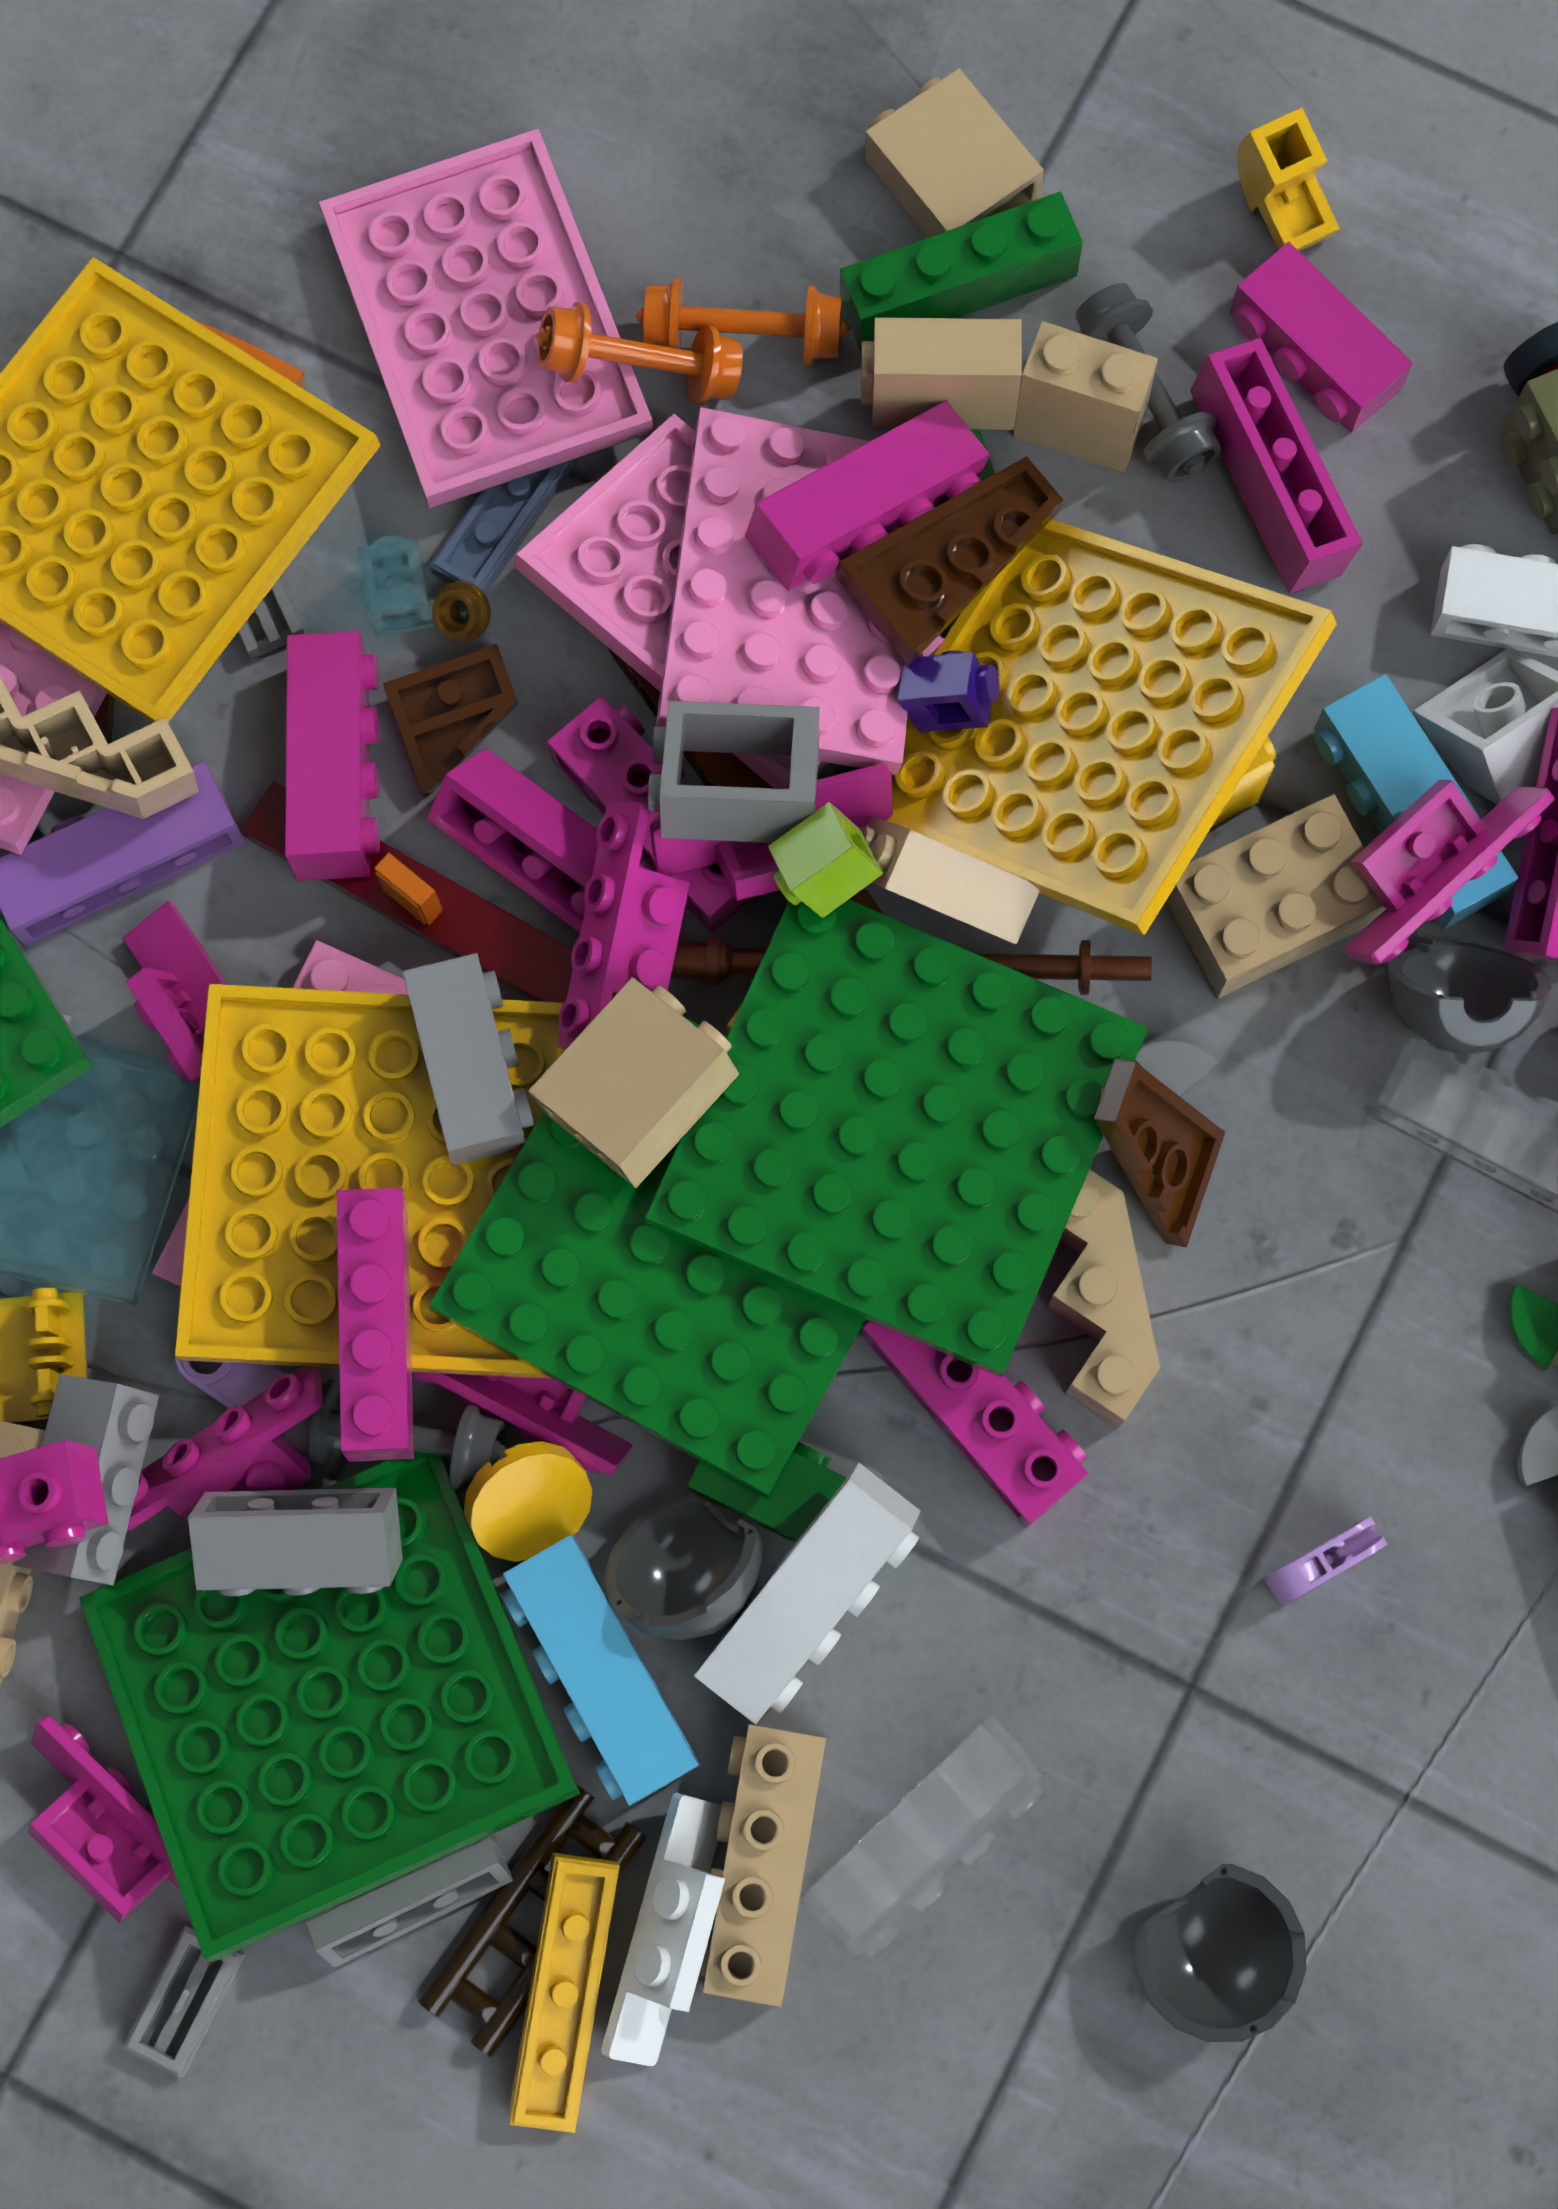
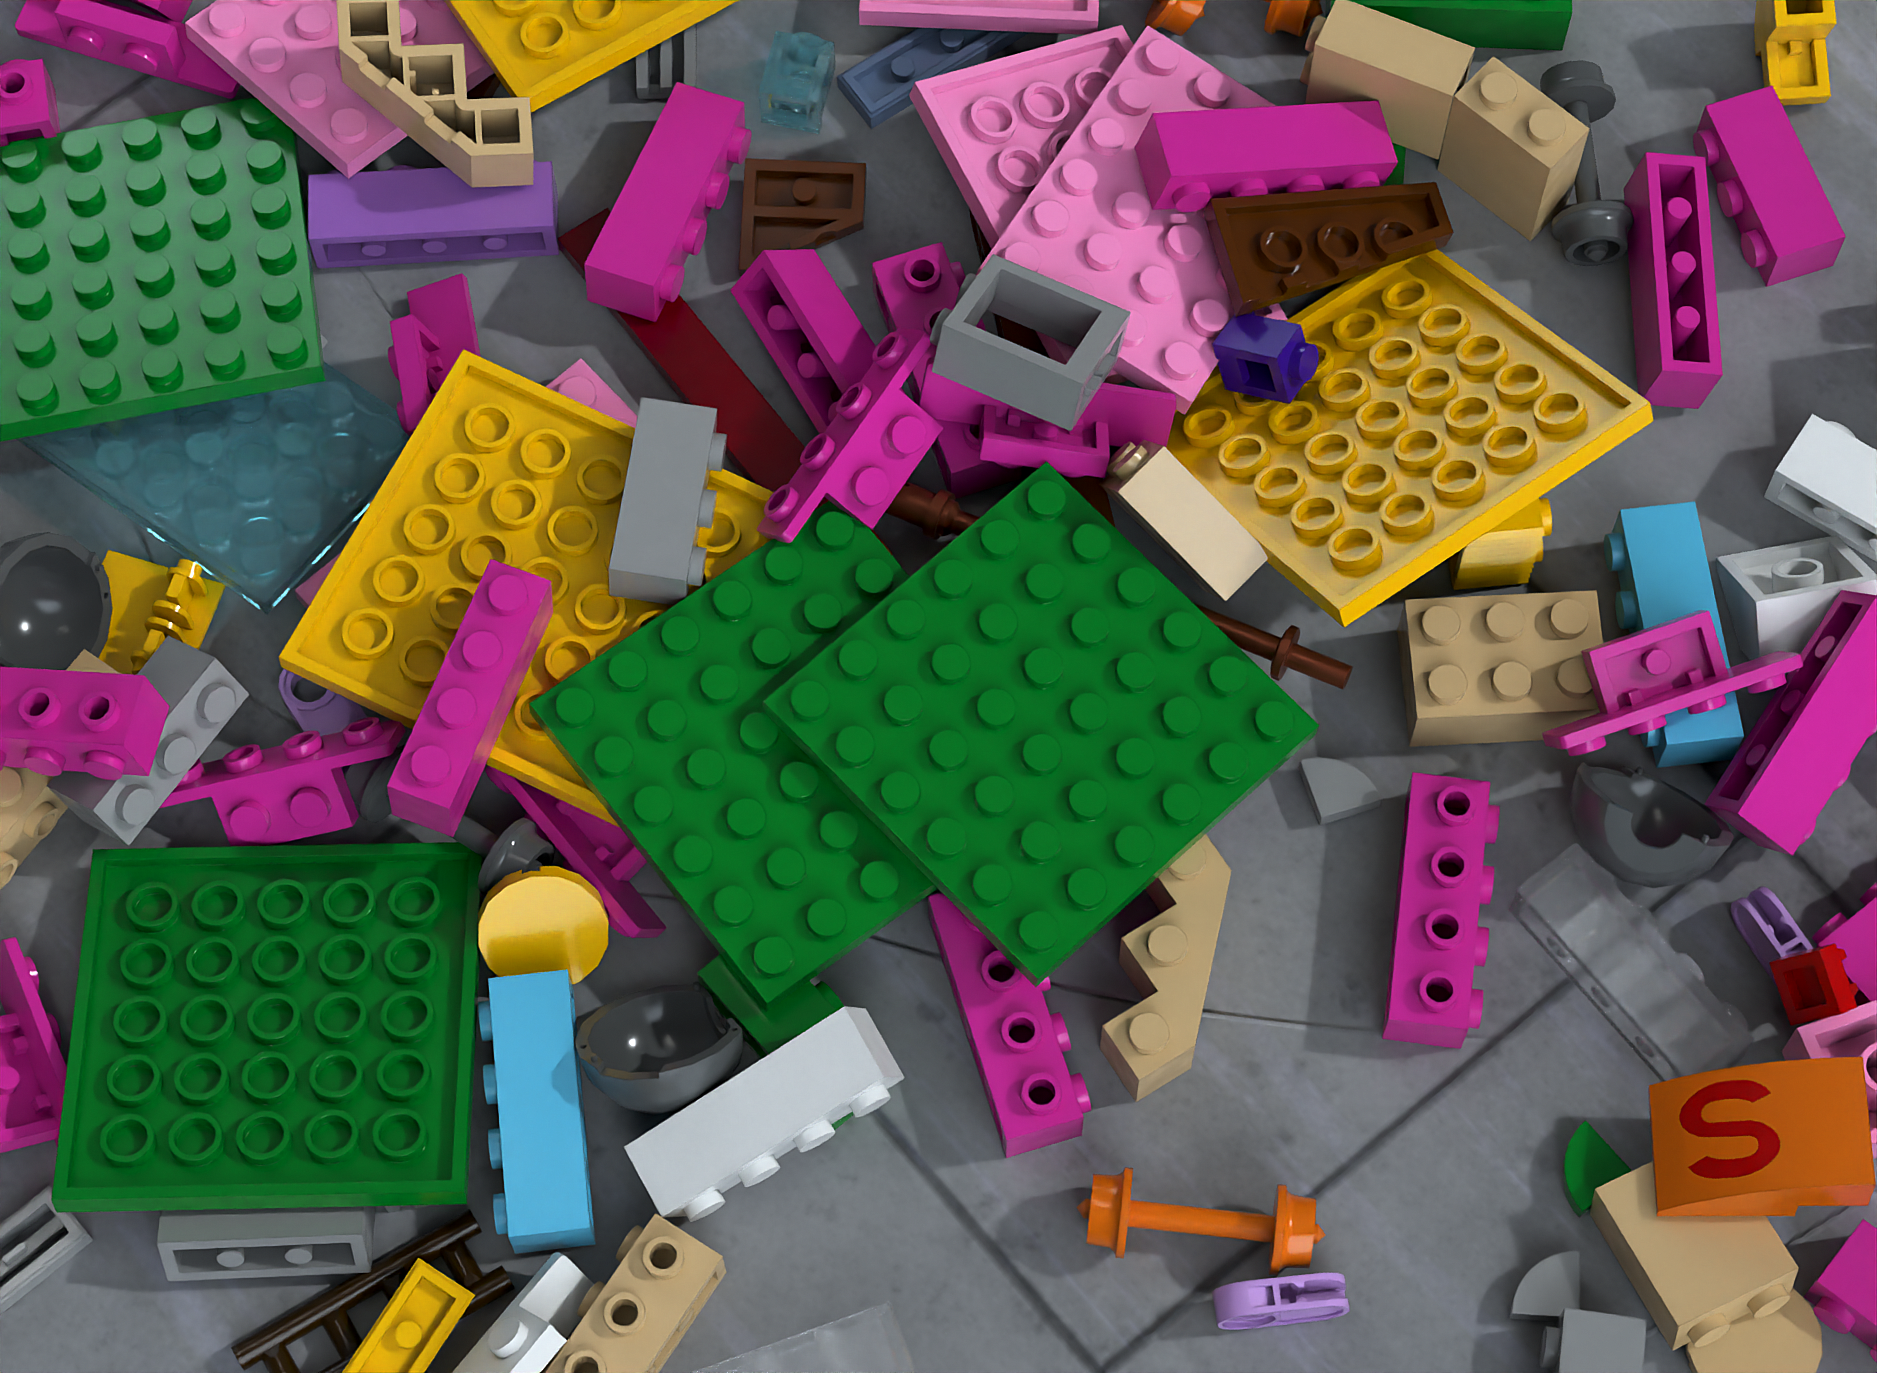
camera: 20 degrees right, 10 degrees down
(296, 1540) = (312, 868): light grey brick -> none
(408, 889) = (683, 342): orange tile -> none
(448, 617) = (834, 124): pearl gold plate -> none
(636, 1080) = (809, 572): tan brick -> none
(823, 861) = (1071, 445): lime brick -> none
(1160, 1145) = (1286, 843): reddish brown wing -> none
(1306, 1497) = (1288, 1230): none -> orange piece
(1312, 1145) = (1438, 911): none -> dark pink brick

